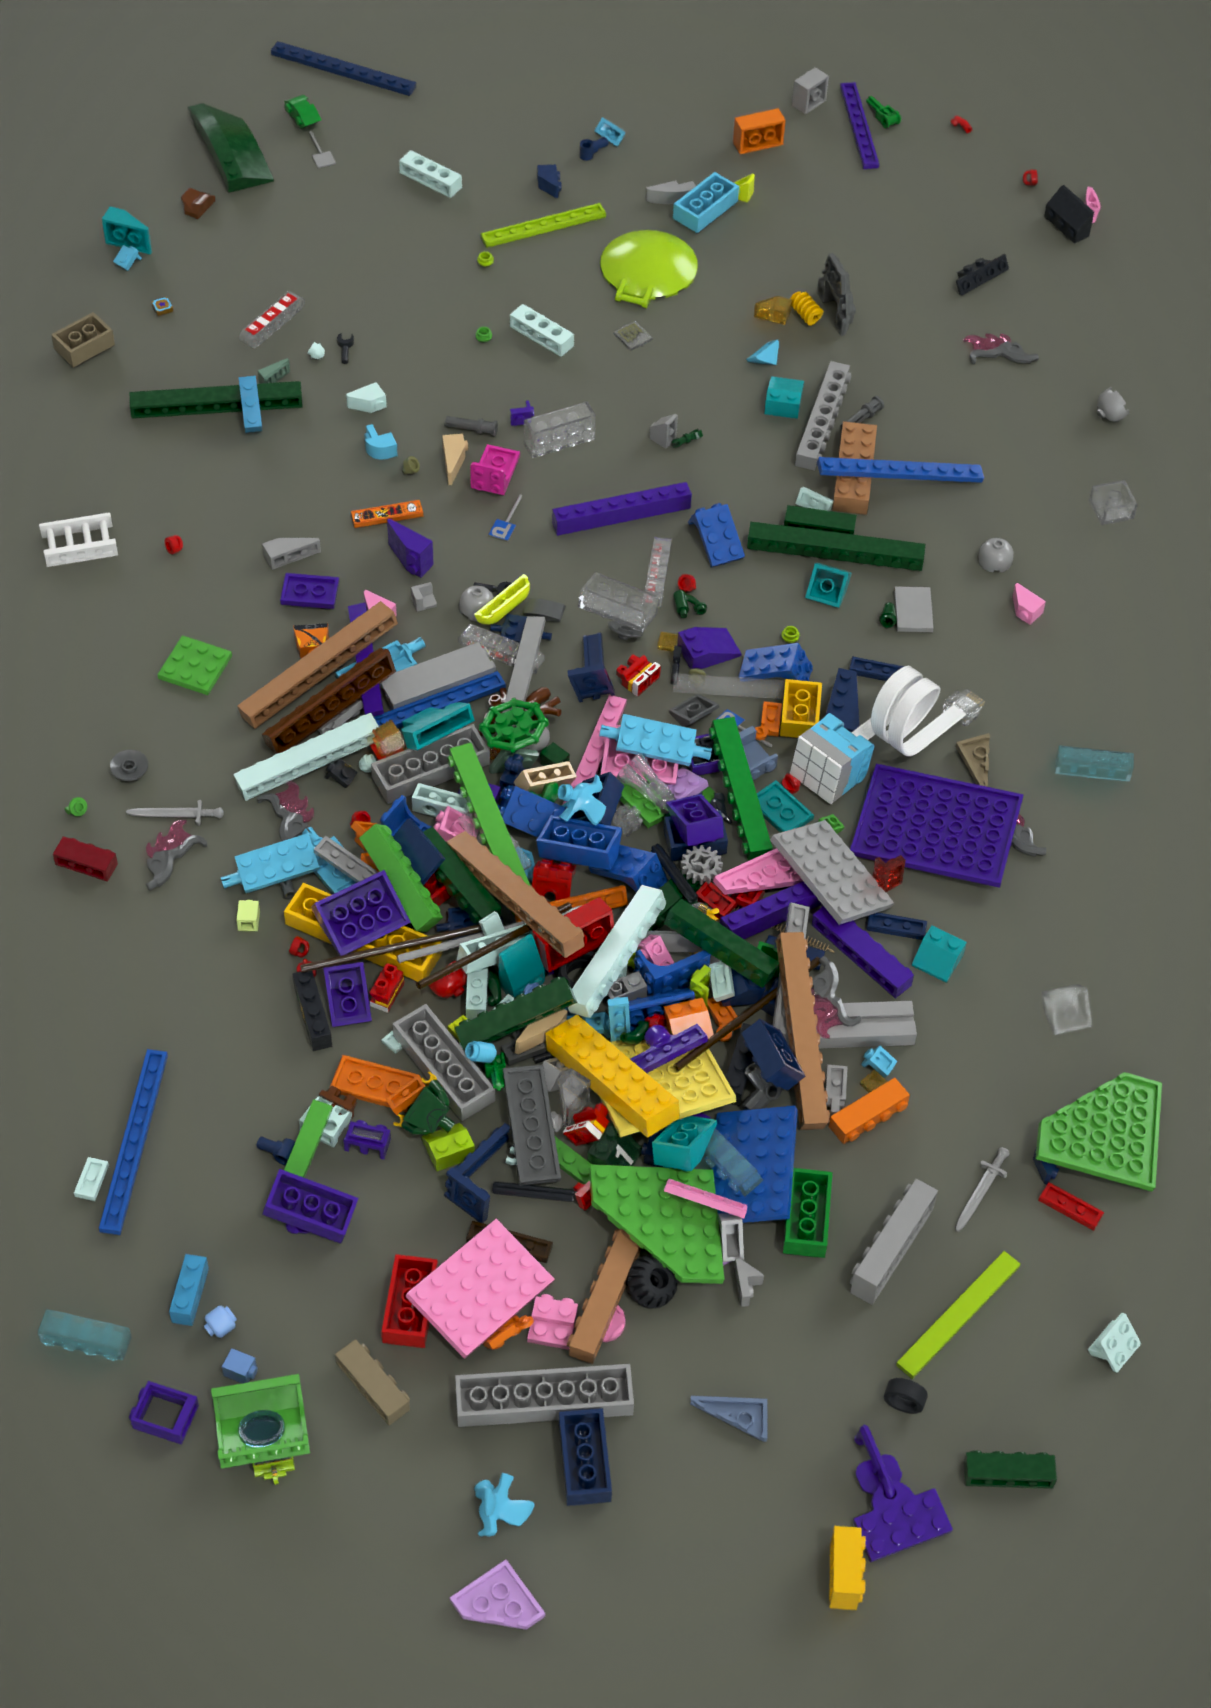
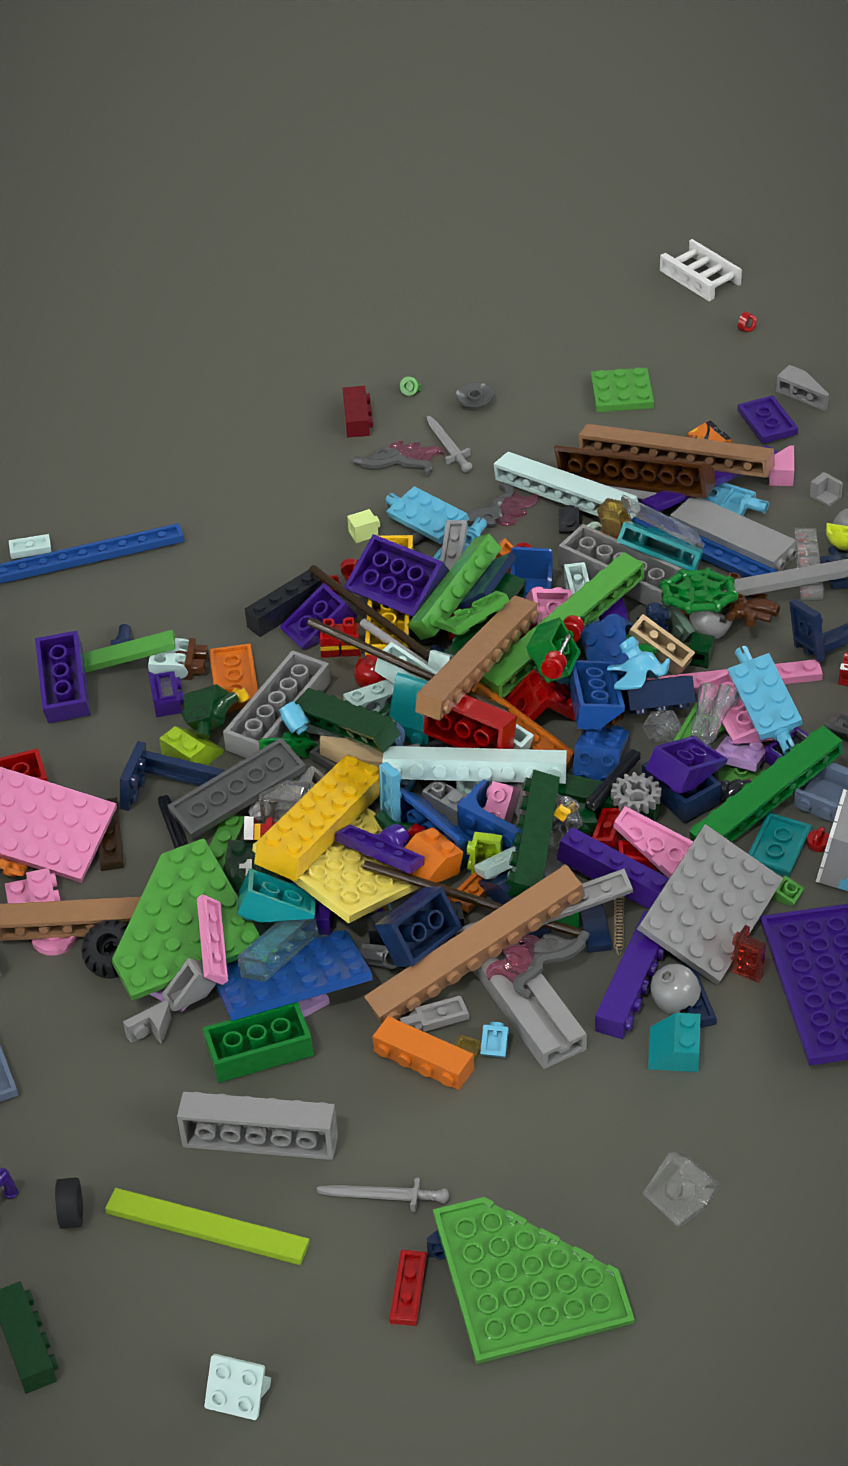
camera: 70 degrees right, 10 degrees down
(417, 710) = (662, 521): none -> clear piece
(457, 879) = (476, 614): none -> bright green wing
(533, 843) = (555, 647): none -> green brick
(884, 931) = (674, 988): none -> light grey cylinder

